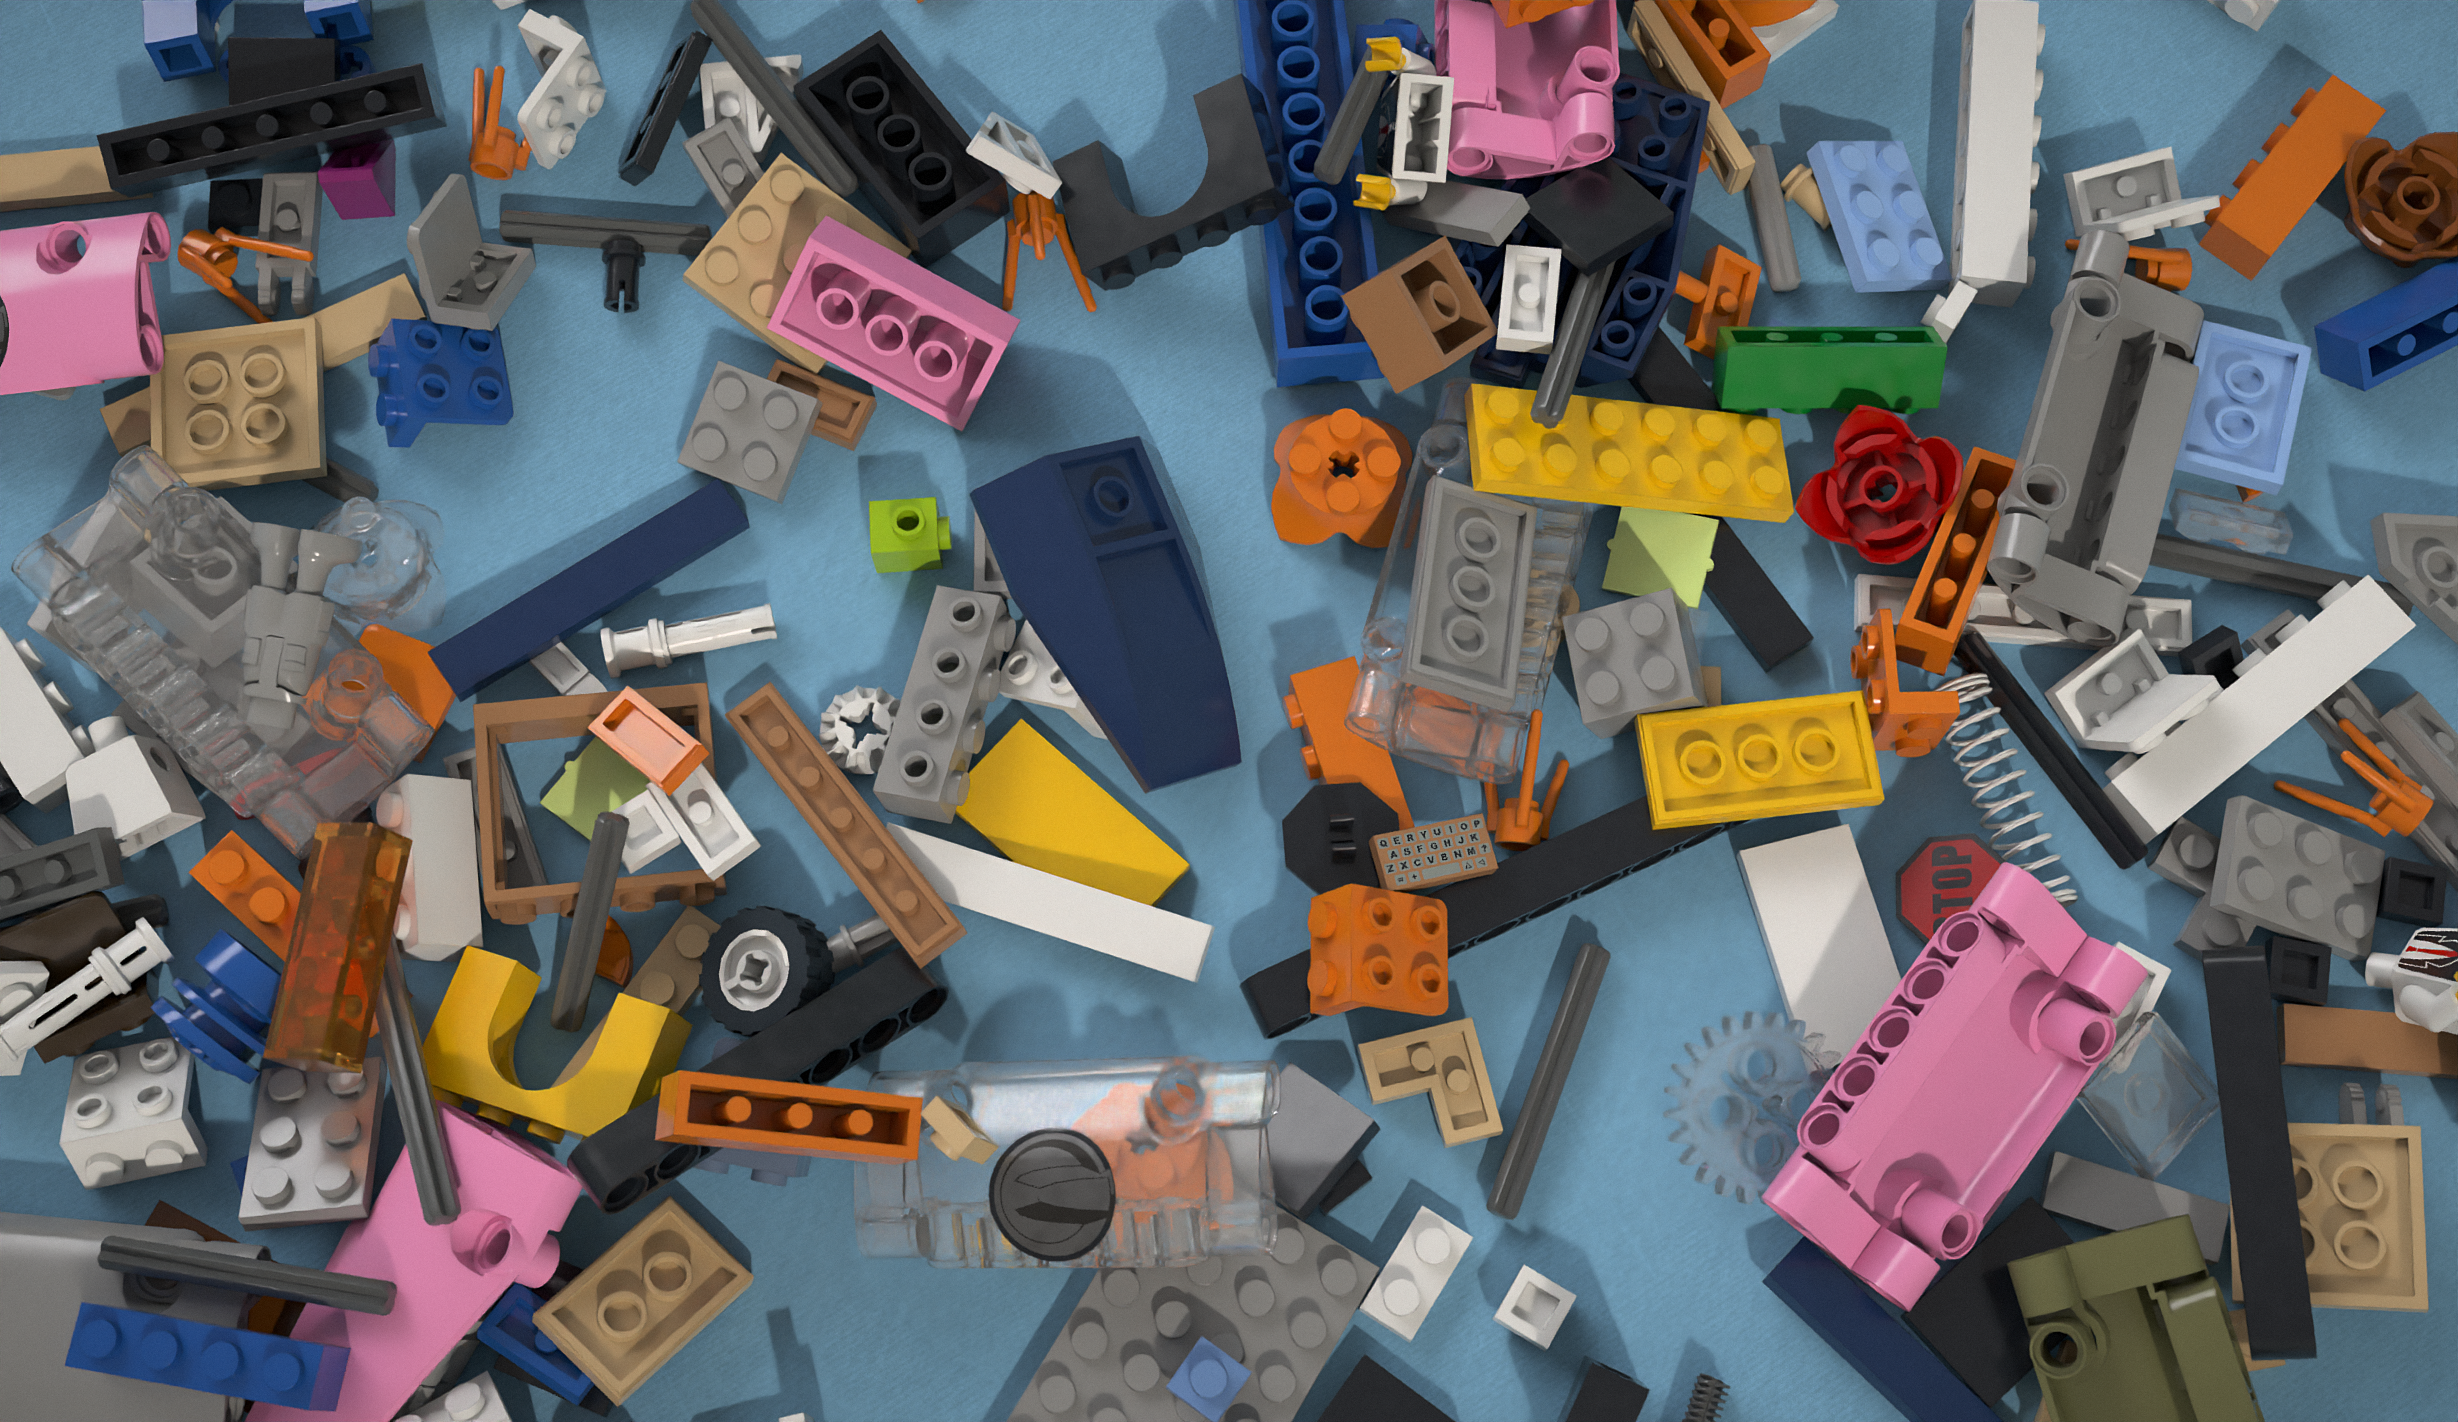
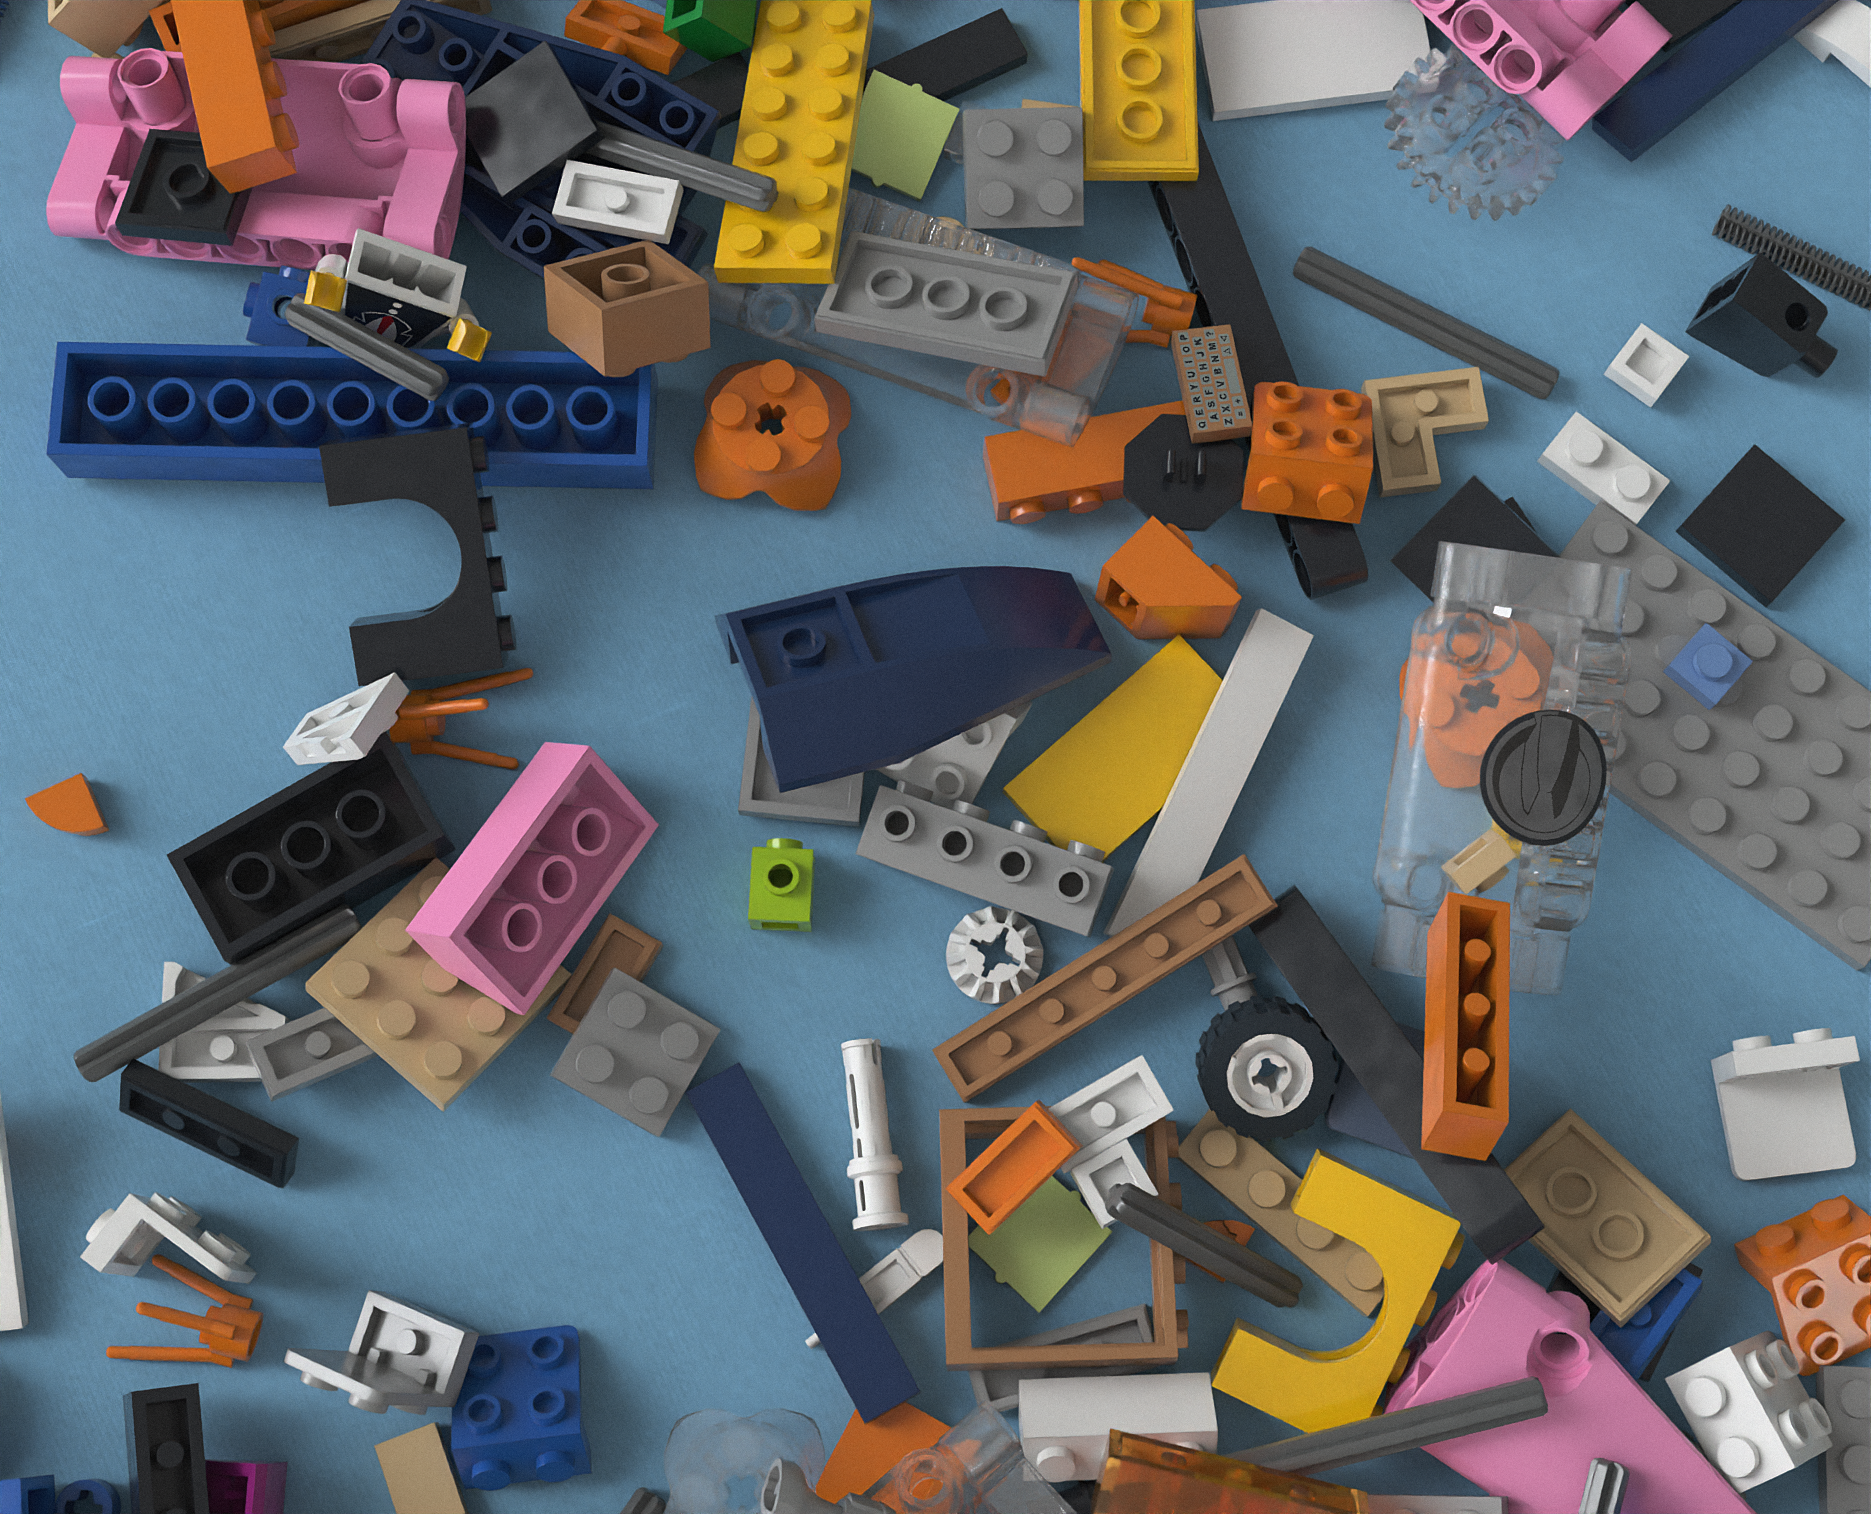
camera: 85 degrees left, 5 degrees up
(599, 231) = (355, 1207): dark grey axle -> none
(622, 274) = (415, 1187): black pin -> none
(1226, 828) = (1165, 589): none -> orange slope
(1462, 212) = (502, 251): light grey tile -> none

